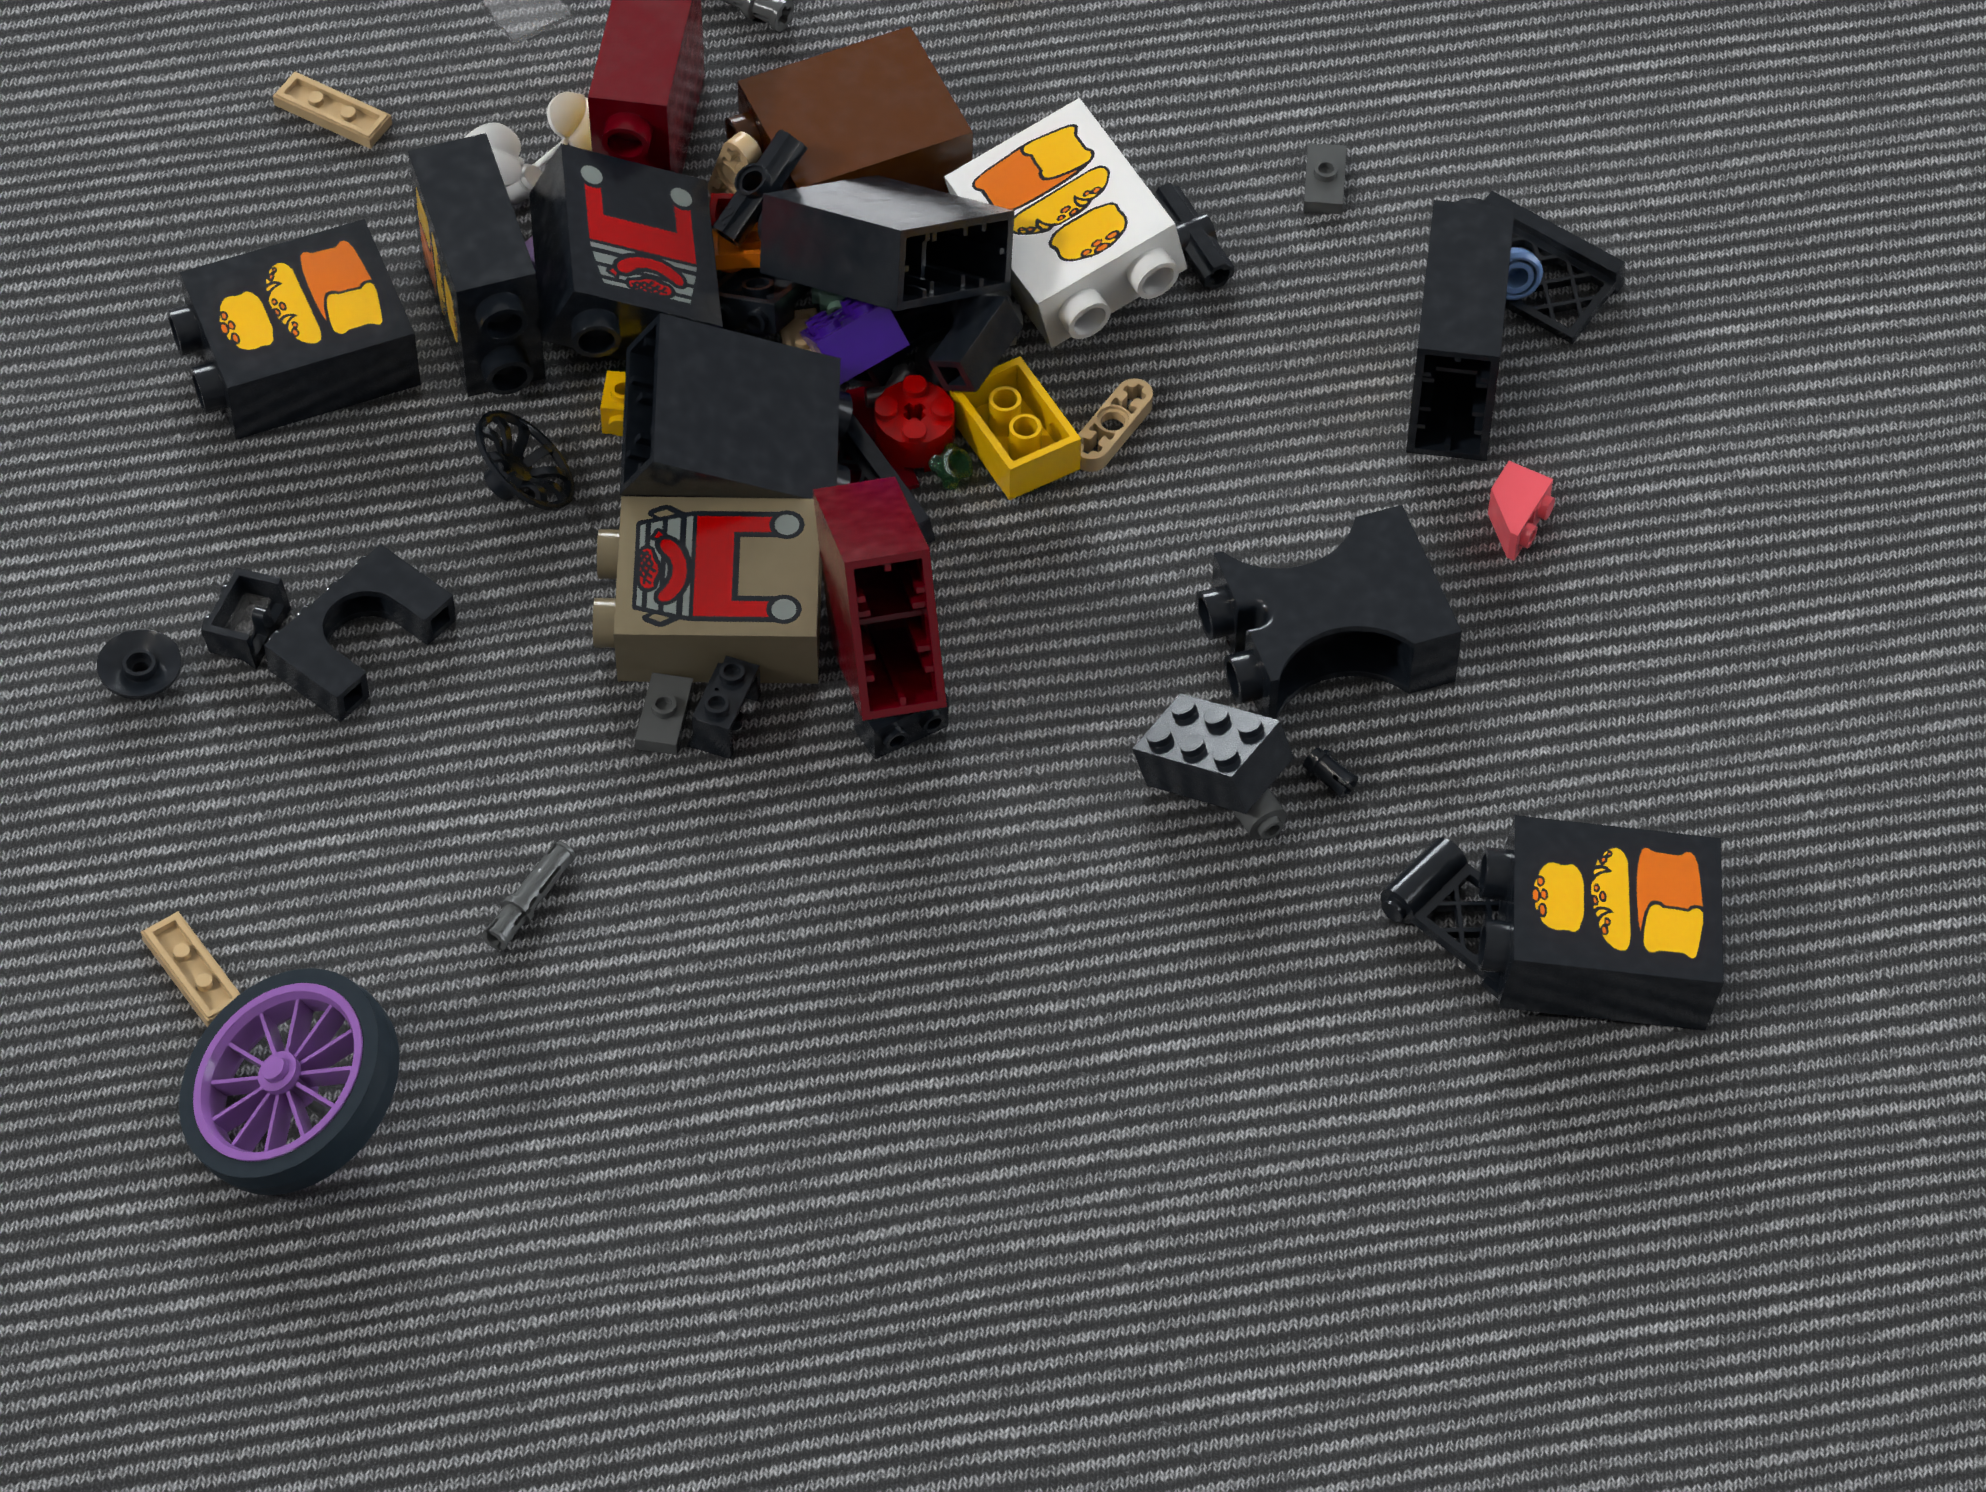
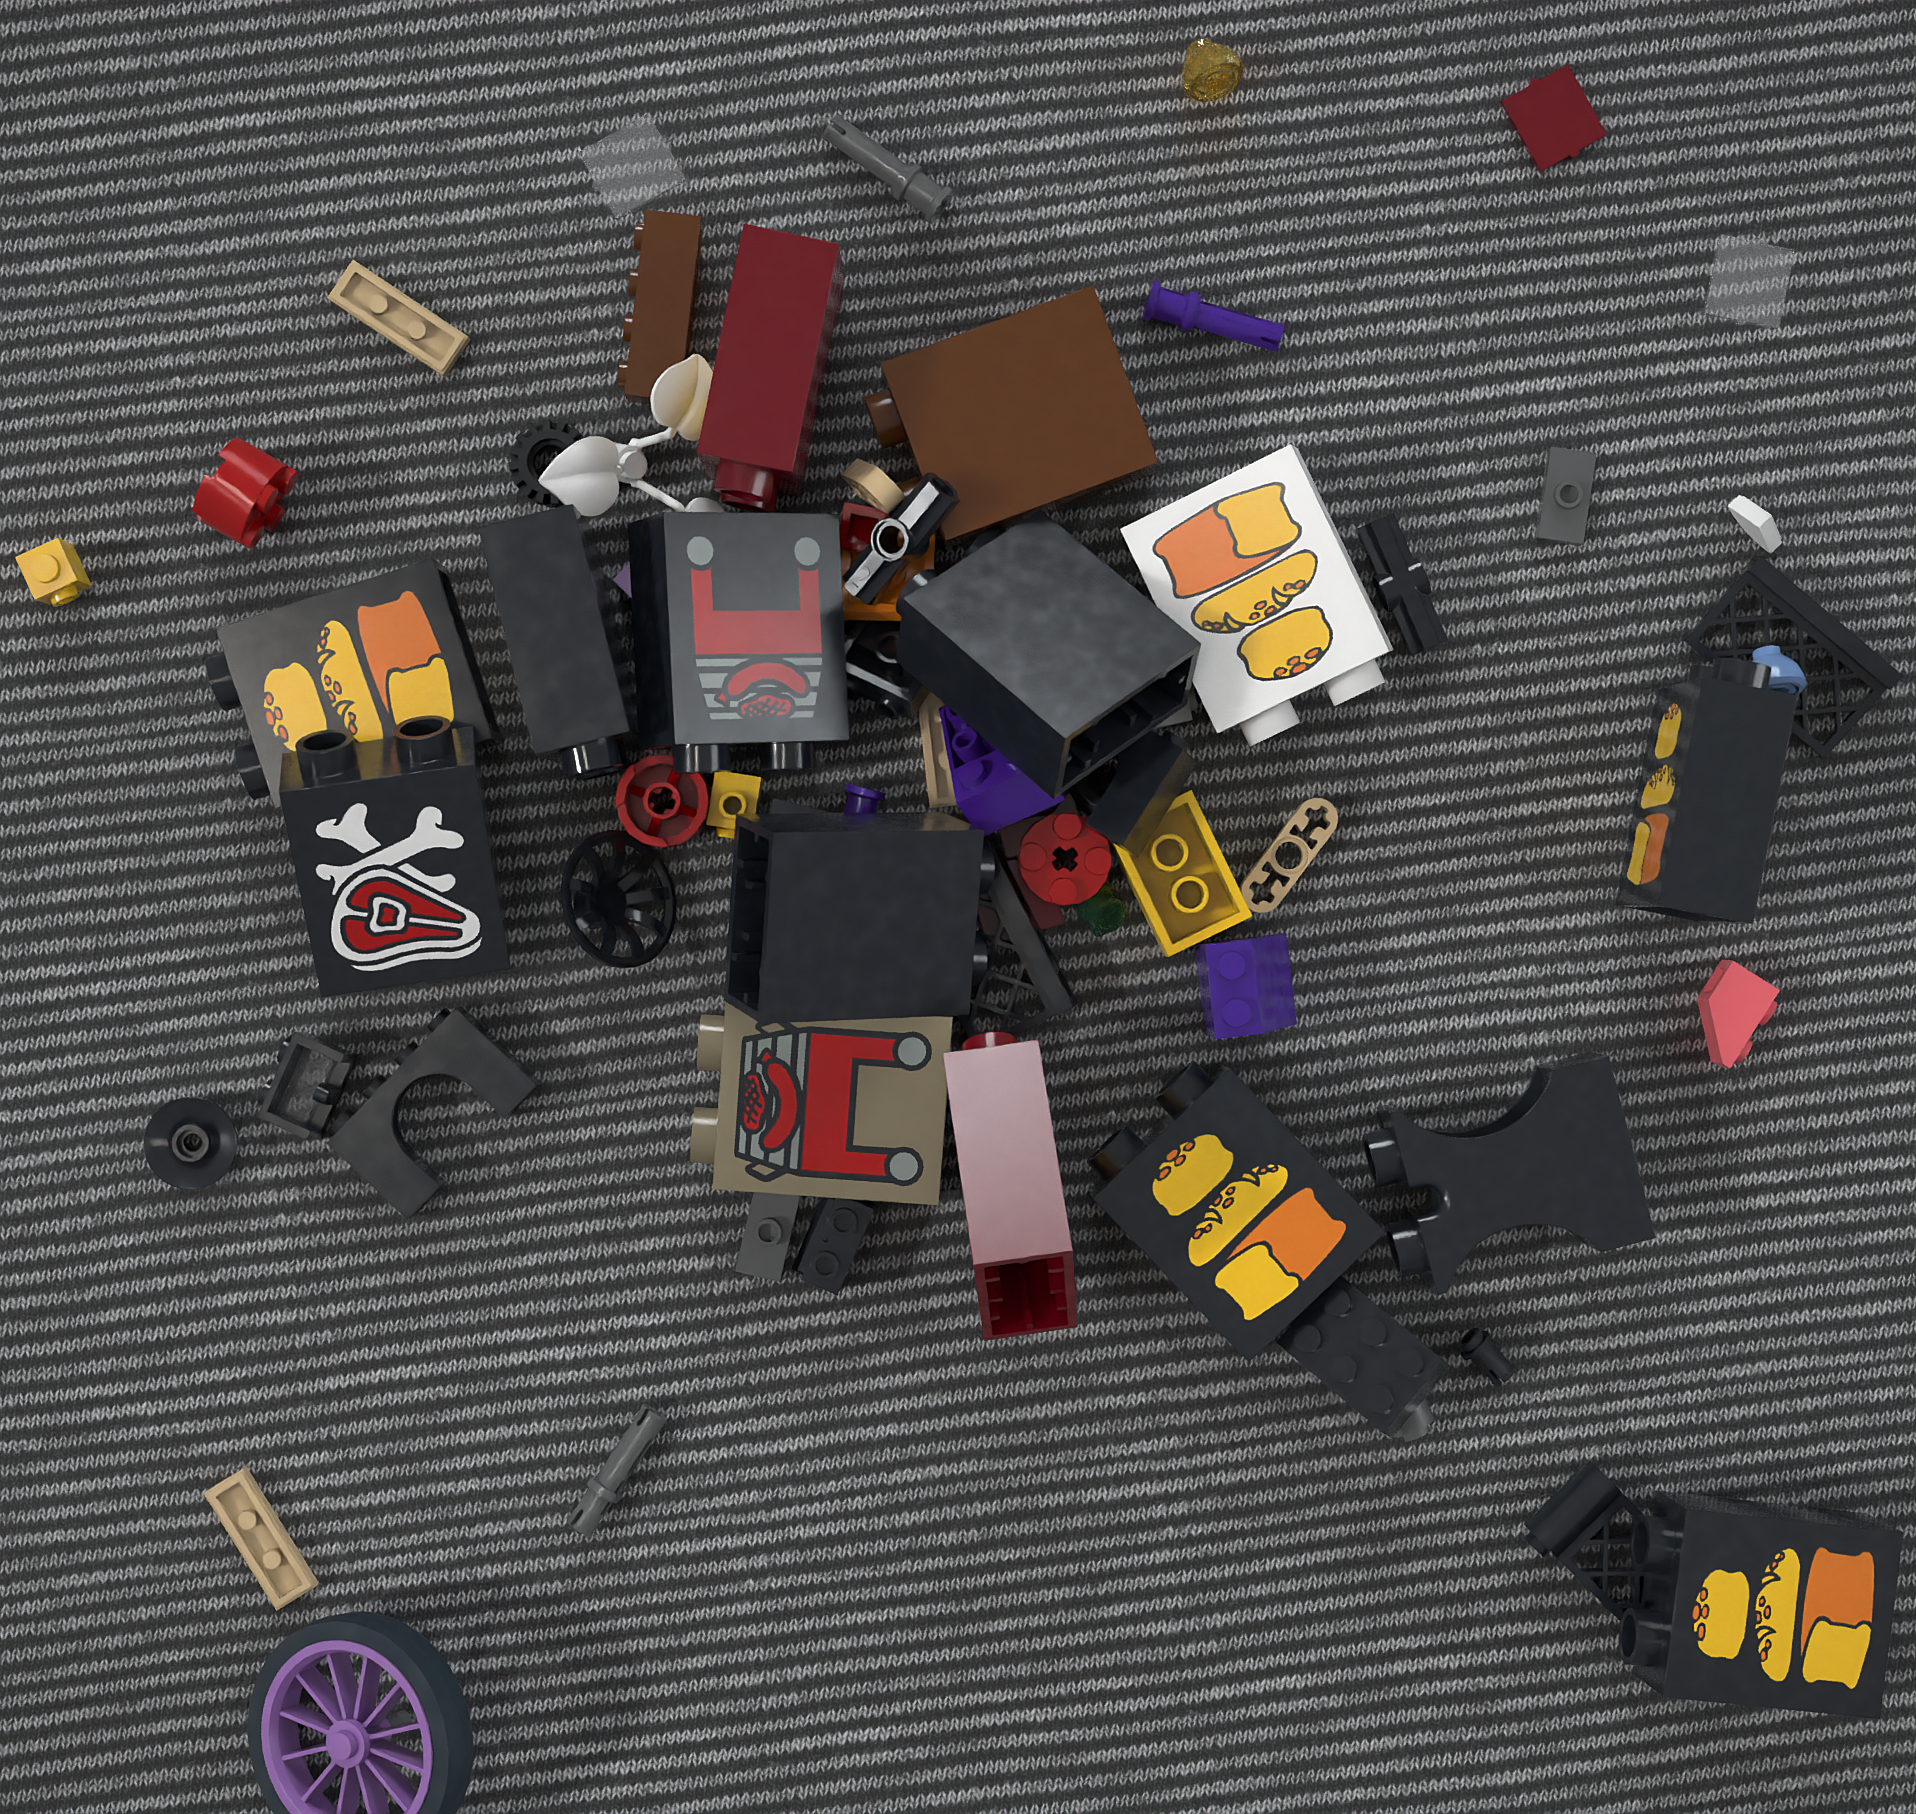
camera: 10 degrees right, 35 degrees up
(35, 274) = (54, 572): none -> yellow brick
(202, 208) = (244, 493): none -> red brick
(332, 410) = (394, 856): none -> brick
(556, 68) = (663, 299): none -> reddish brown brick
(563, 398) = (638, 813): none -> red brick
(996, 72) = (1190, 312): none -> dark purple pin
(1078, 497) = (1245, 986): none -> dark purple slope
(1081, 653) = (1231, 1206): none -> brick
(1460, 40) = (1748, 282): none -> clear piece
(1485, 180) = (1756, 523): none -> white tile

